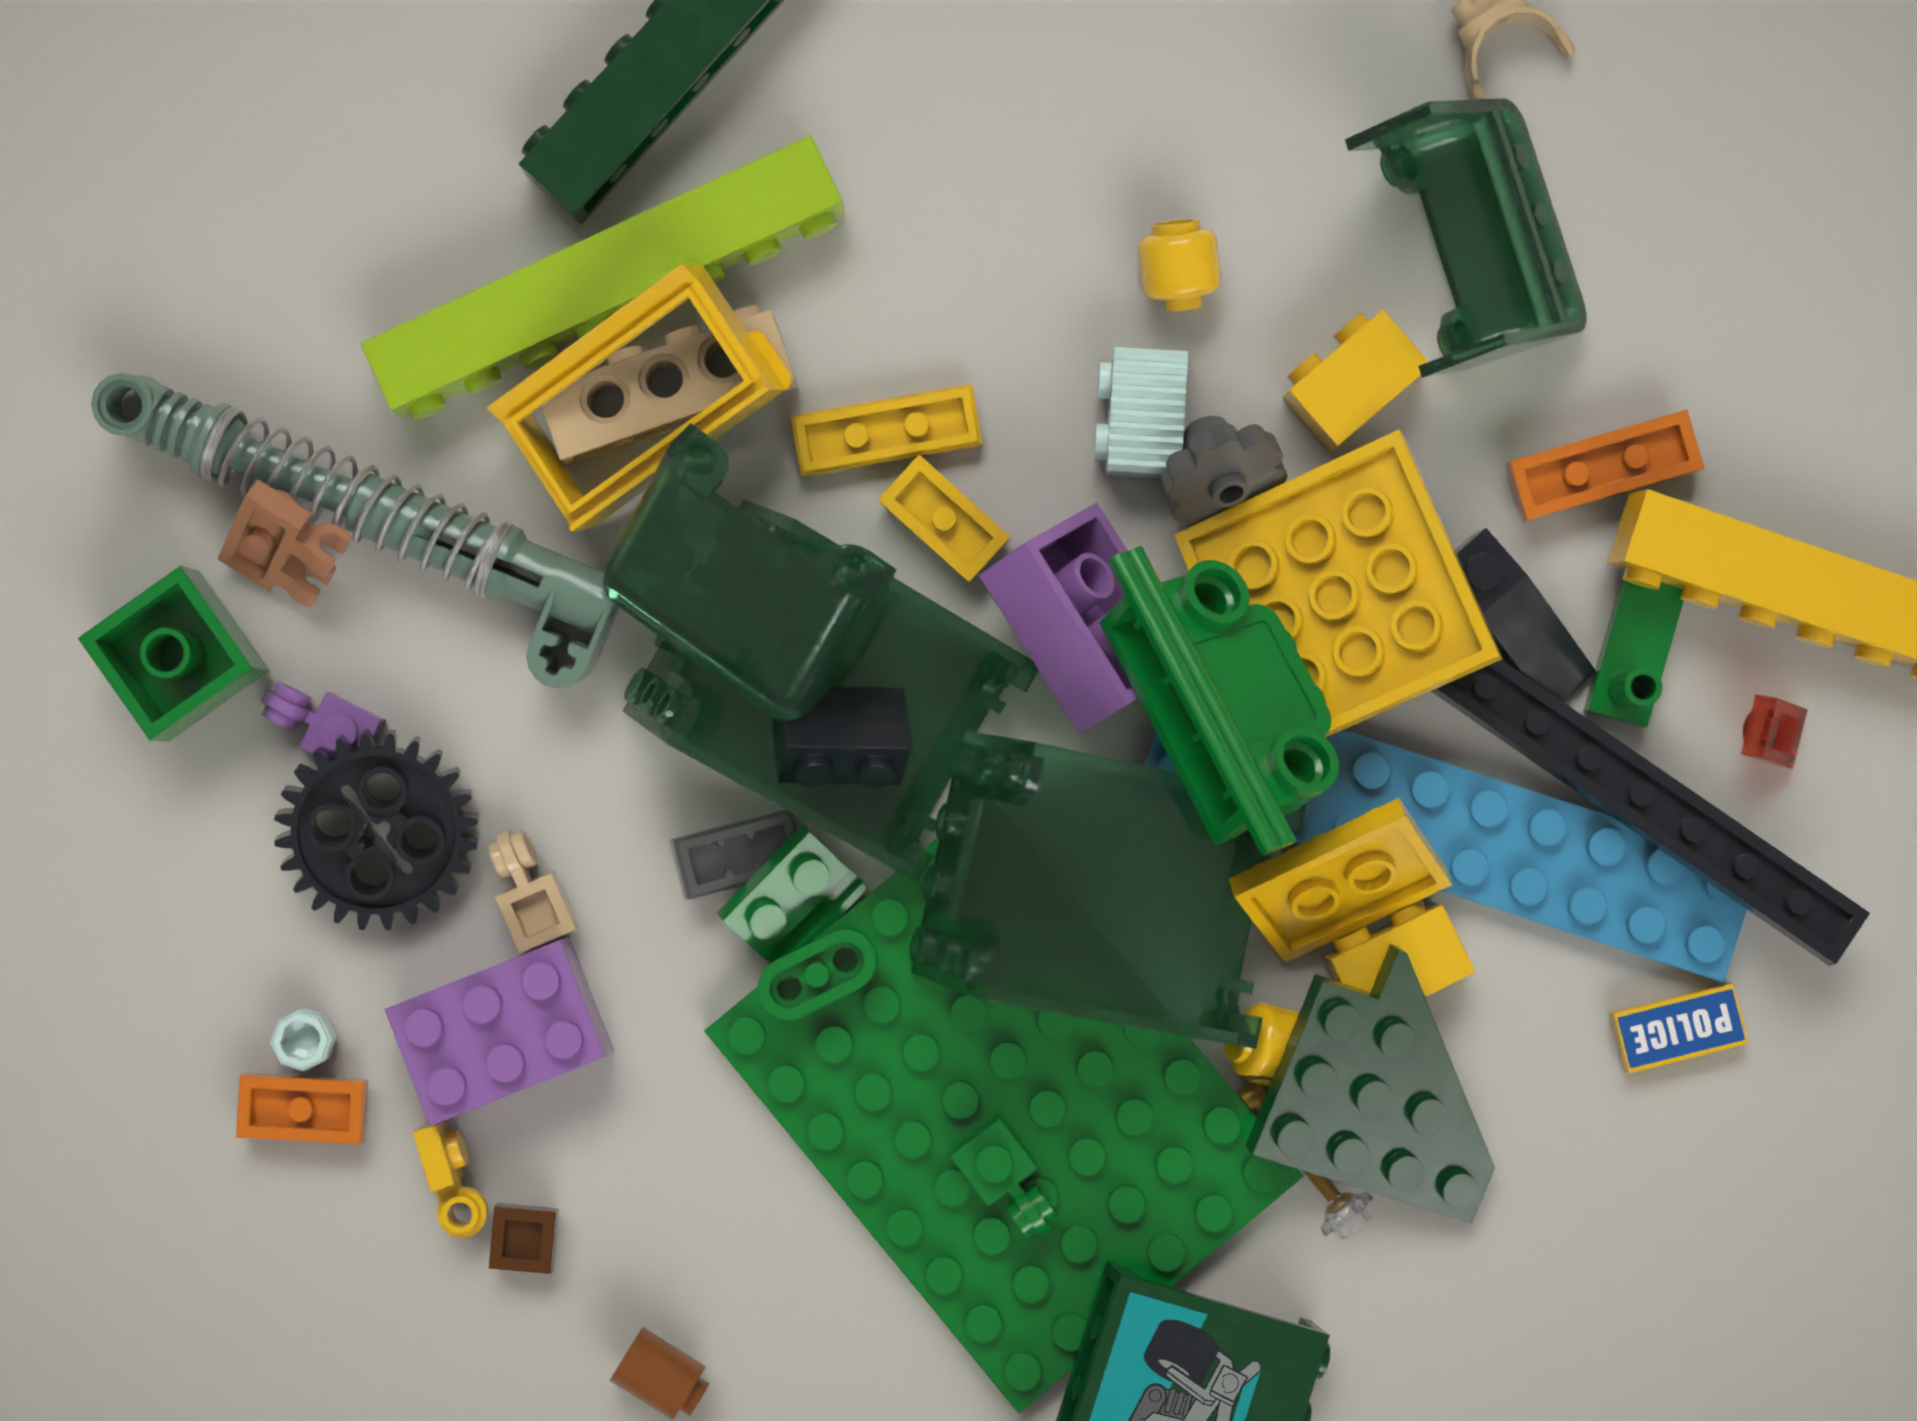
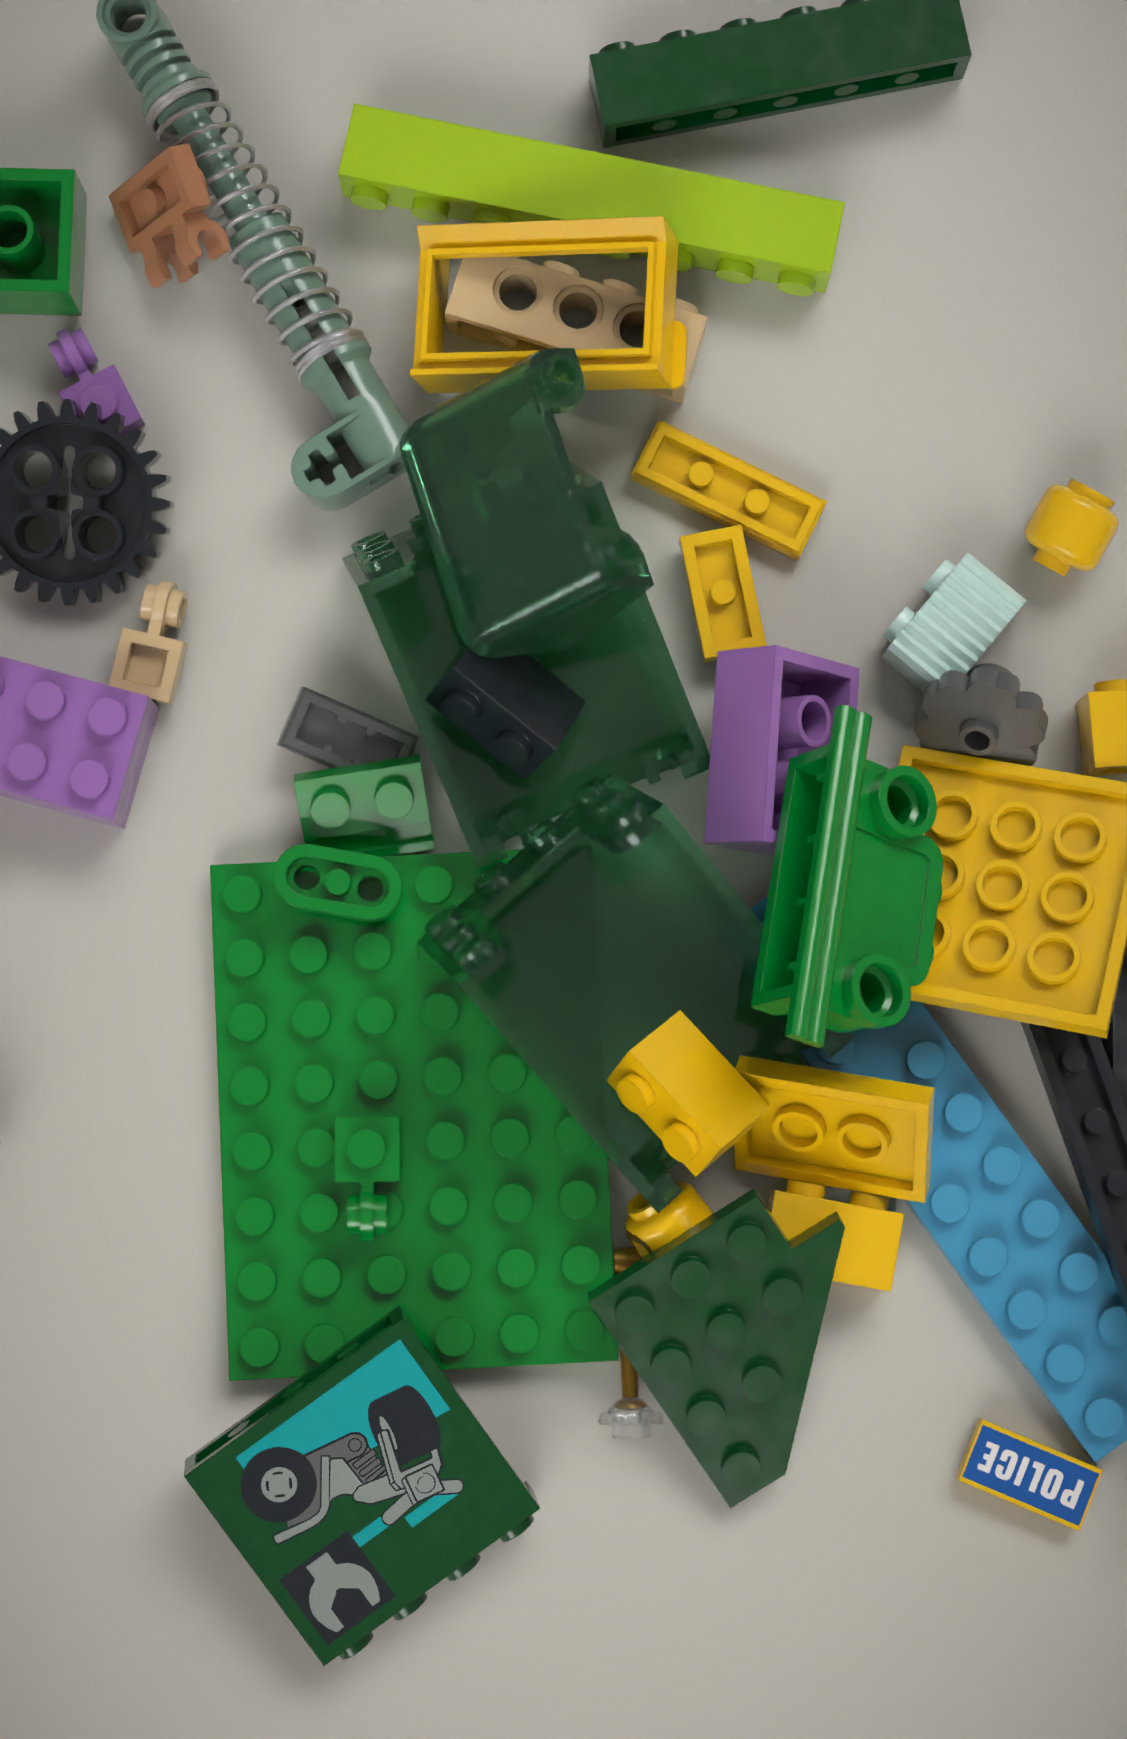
camera: 35 degrees right, 5 degrees down
(1211, 940) = (687, 1093): none -> yellow brick

